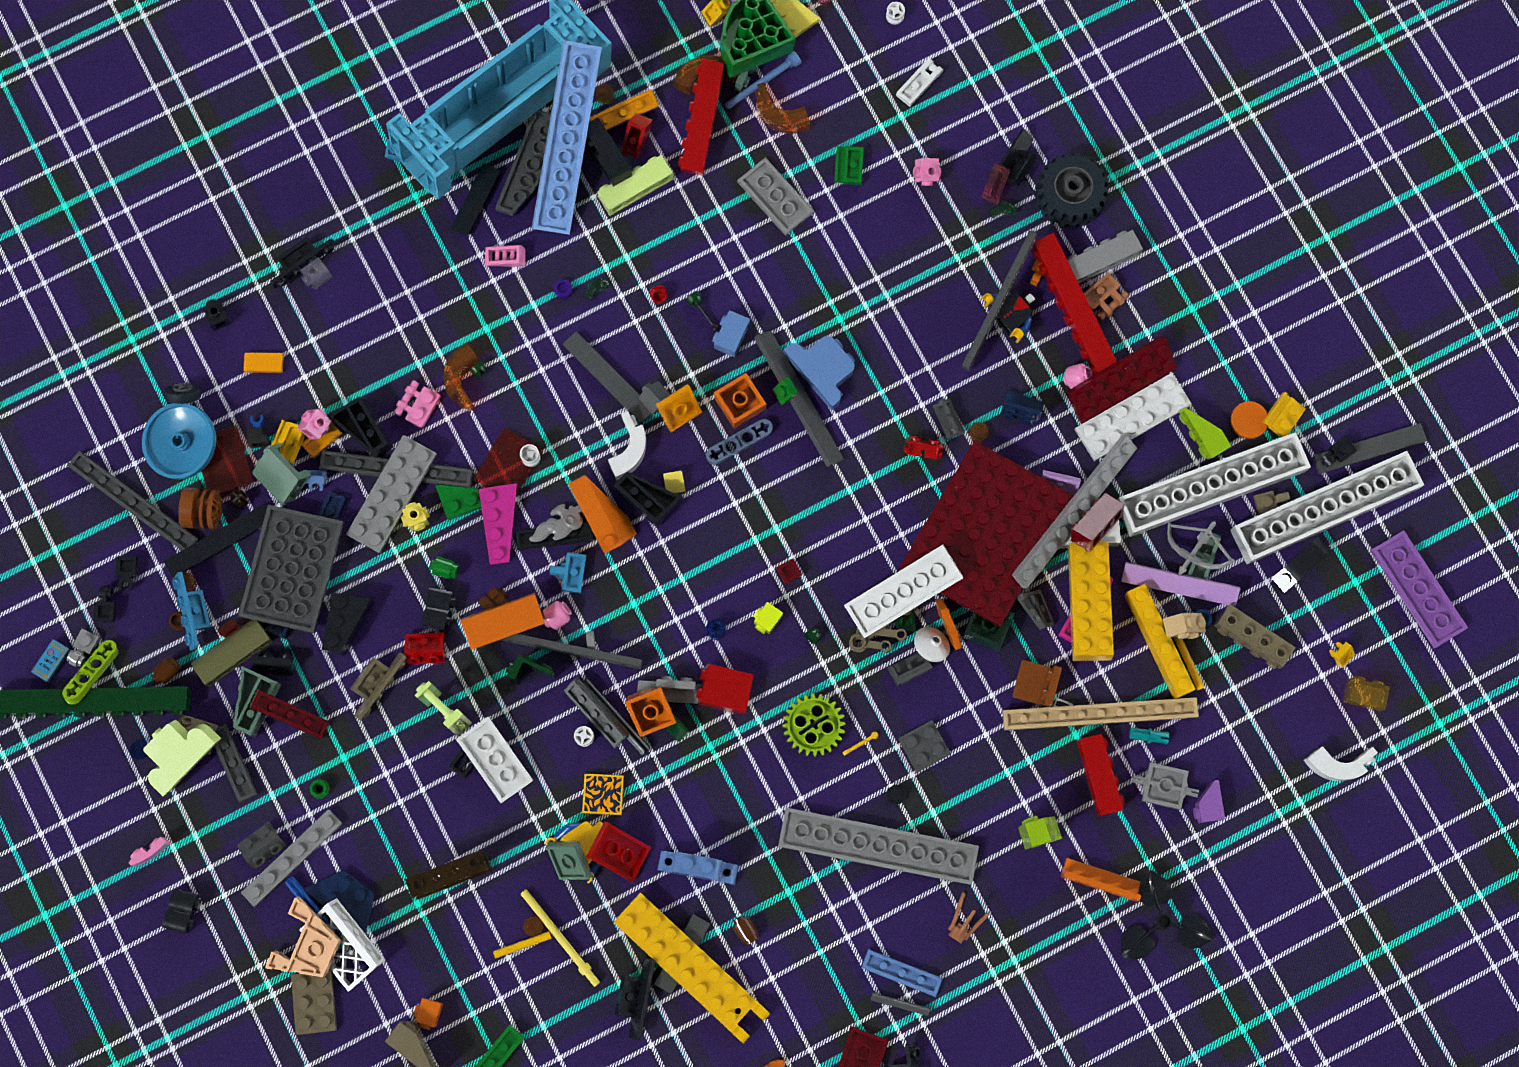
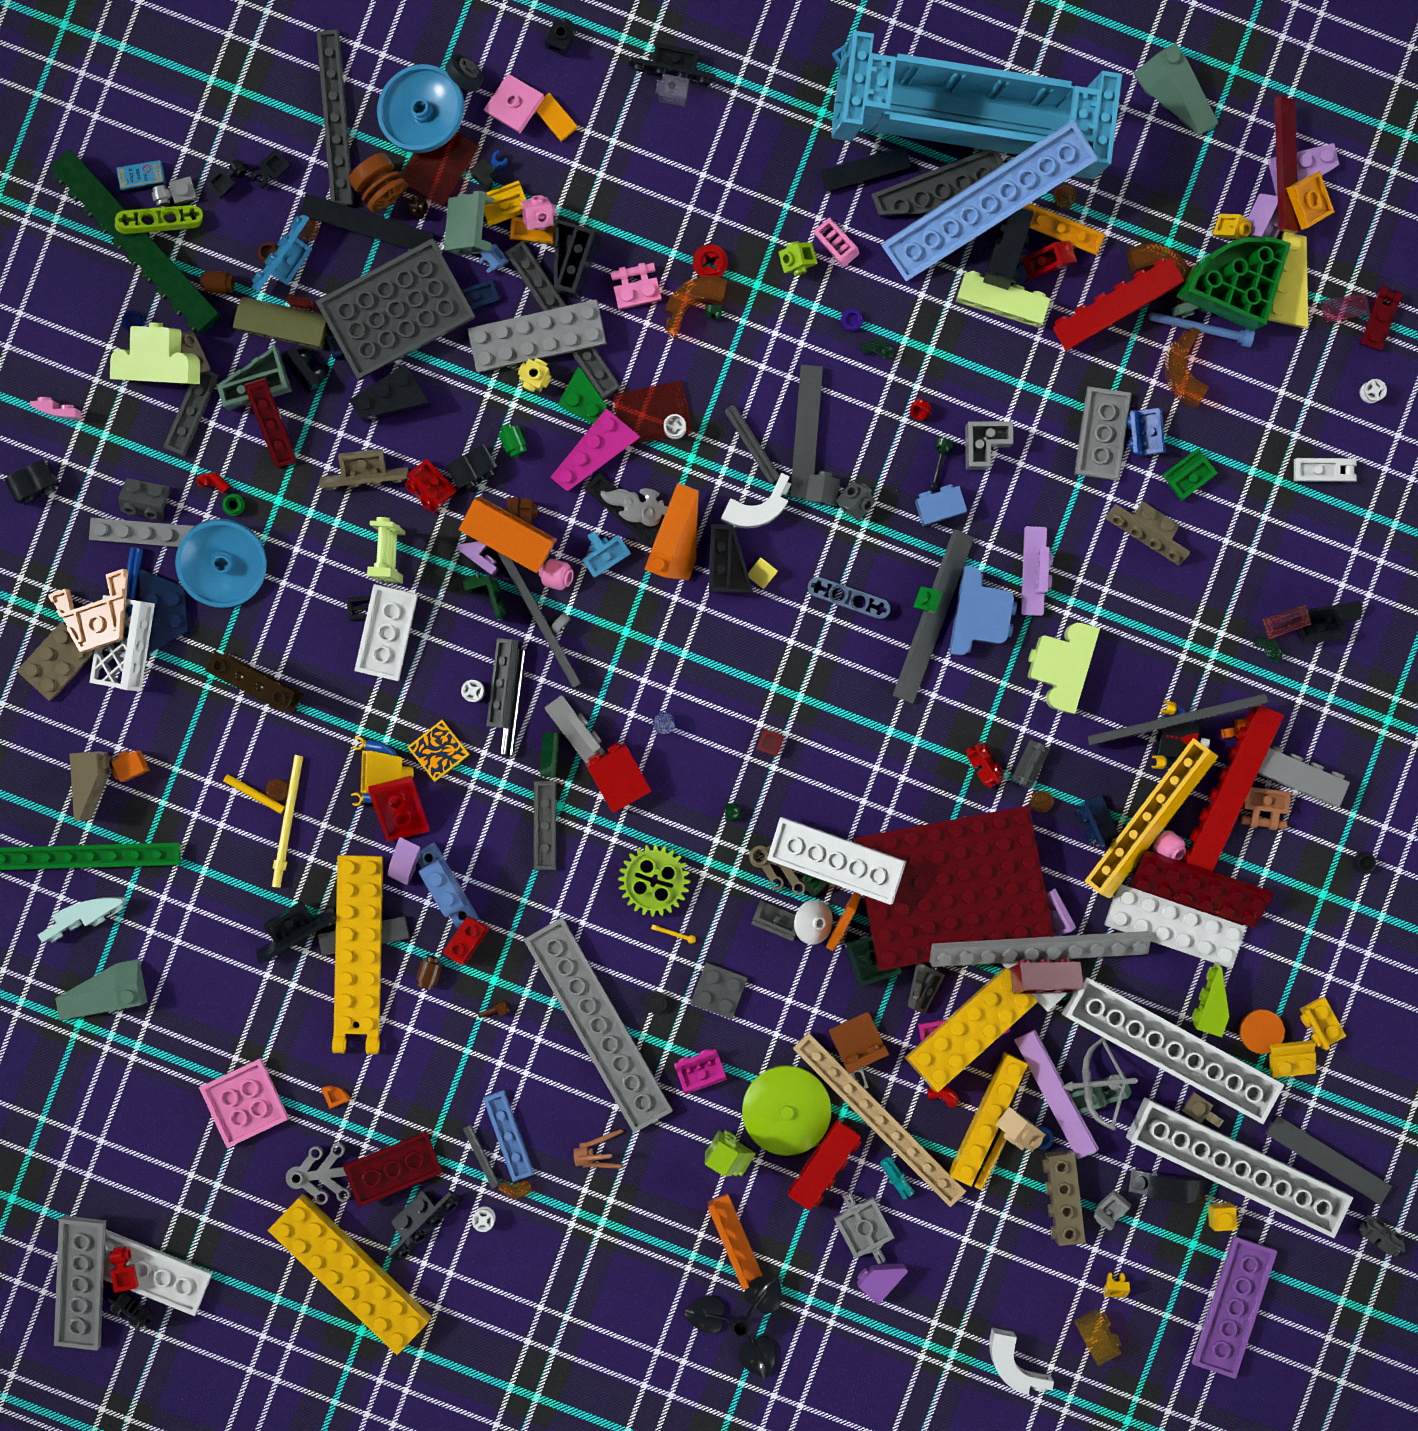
camera: 50 degrees right, 10 degrees up
(230, 380) = (514, 103): none -> bright pink plate
(291, 787) = (213, 480): none -> red arm
(350, 829) = (221, 563): none -> dark azure dish
(440, 338) = (711, 251): none -> red gear
(493, 287) = (797, 257): none -> lime brick
(494, 656) = (474, 551): none -> lavender slope
(569, 860) = (355, 773): sand green tile -> none
(583, 417) = (752, 444): none -> dark grey axle
(649, 710) = (541, 729): orange slope -> none
(656, 878) = (404, 861): none -> lavender slope
(679, 378) = (856, 500): none -> dark grey brick
(679, 408) = (831, 519): light orange plate -> none
(711, 270) = (980, 439): none -> light grey brick
(714, 767) = (545, 825): none -> dark grey tile
(740, 400) = (885, 567): orange brick -> none
(745, 884) = (466, 940): none -> red bracket
(767, 618) = (711, 759): neon yellow brick -> none
(799, 168) = (1146, 432): none -> bracket
(810, 902) = (501, 1008): none -> reddish brown hand
(826, 310) = (1035, 571): none -> lavender bracket
(863, 217) = (1151, 529): none -> dark tan bracket
(902, 343) = (1064, 665): none -> yellowish green brick
(927, 171) = (1244, 550): bright pink brick -> none
(943, 1001) = (515, 1191): none -> clear orange arm
(947, 1039) = (480, 1222): none -> white wheel
(967, 804) = (700, 1071): none -> dark pink bracket
(1042, 770) = (786, 1110): none -> lime dish
(1049, 370) = (1151, 818): none -> yellow brick
(1071, 190) = (1340, 695): black wheel -> none
(1121, 655) = (946, 1094): none -> red arm
(1192, 265) = (1364, 862): none -> black plate
(1275, 378) = (1322, 1022): none -> yellow bracket
(1287, 613) = (1111, 1209): none -> light grey bracket
(1341, 450) = (1303, 1137): black plate -> none
(1351, 545) = (1222, 1216): none -> yellow brick
(1456, 453) = (1390, 1242): none -> dark grey hinge

